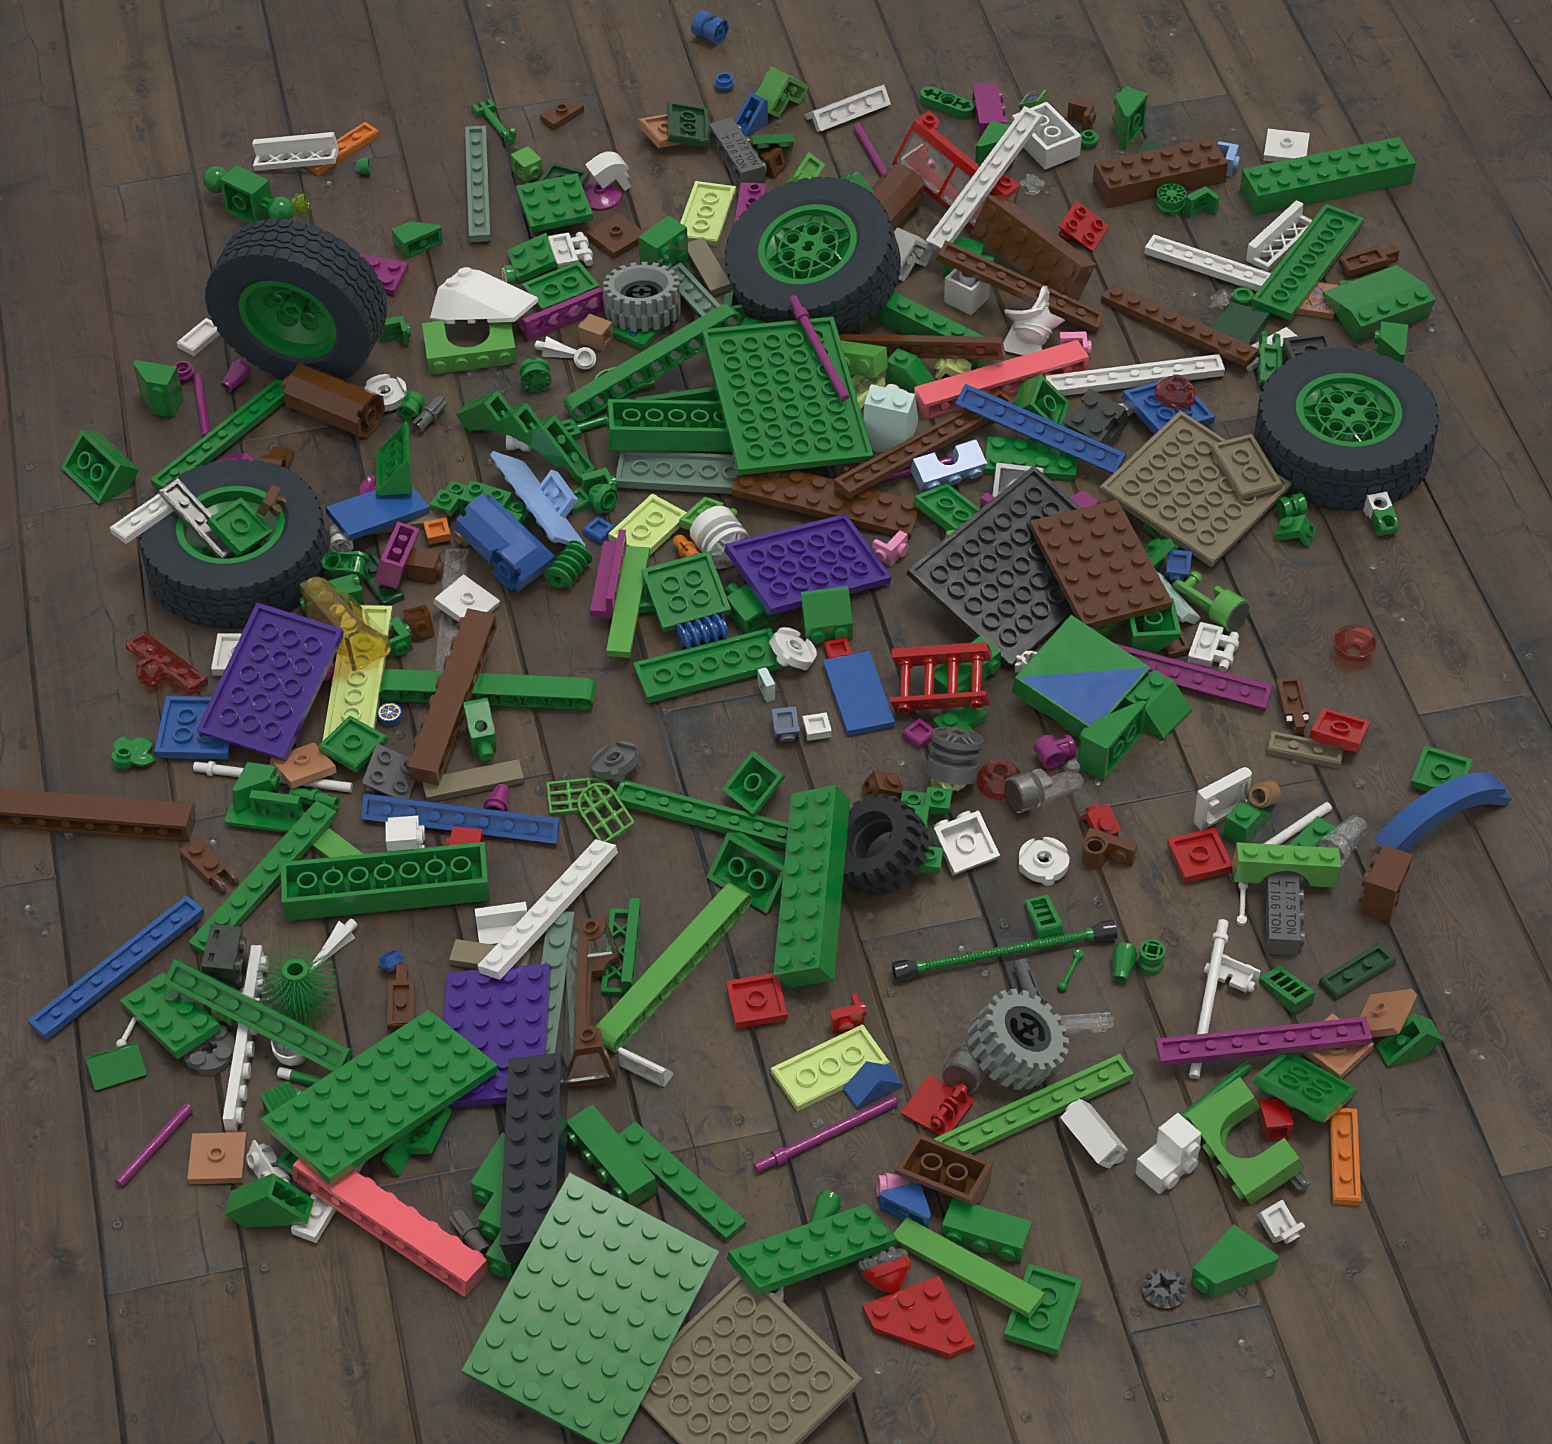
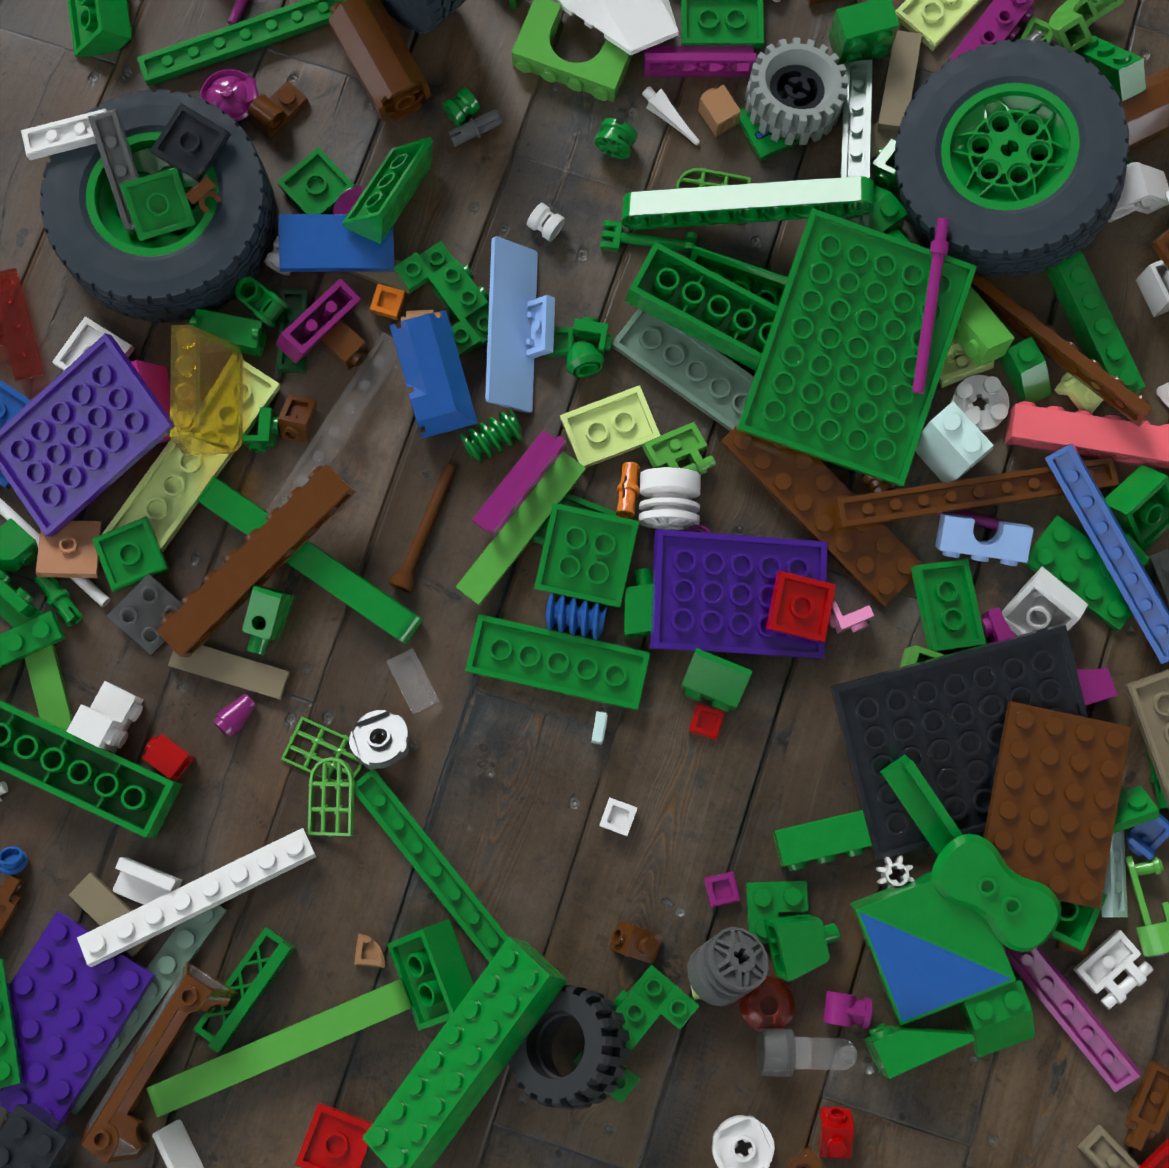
camera: 30 degrees right, 30 degrees up
(241, 480) = (190, 142): none -> black plate
(336, 487) = (315, 183): none -> green plate
(389, 714) = (198, 527): blue tile -> none
(393, 387) = (436, 58): white plate -> none
(448, 815) = (184, 717): blue plate -> none
(464, 595) = (358, 423): white plate -> none
(520, 422) = (549, 212): green arch -> none
(562, 669) = (403, 578): none -> reddish brown piece
(584, 358) = (686, 141): white plate -> none
(598, 530) = (558, 398): blue tile -> none
(613, 722) = (413, 681): none -> clear plate
(697, 888) = (369, 952): none -> medium nougat tile
(753, 783) = (503, 865): green slope -> none
(785, 724) = (586, 796): sand blue bracket -> none
(792, 649) = (640, 696): white plate -> none
(854, 549) = (800, 606): none -> red plate
(858, 693) = (691, 794): blue tile -> none
(935, 655) = (808, 835): red fence -> none
(964, 842) = (672, 1075): white plate -> none
(994, 725) = (799, 944): none -> green torso
(1021, 613) = (921, 803): none -> green fence
(1079, 619) = (978, 878): none -> green plate

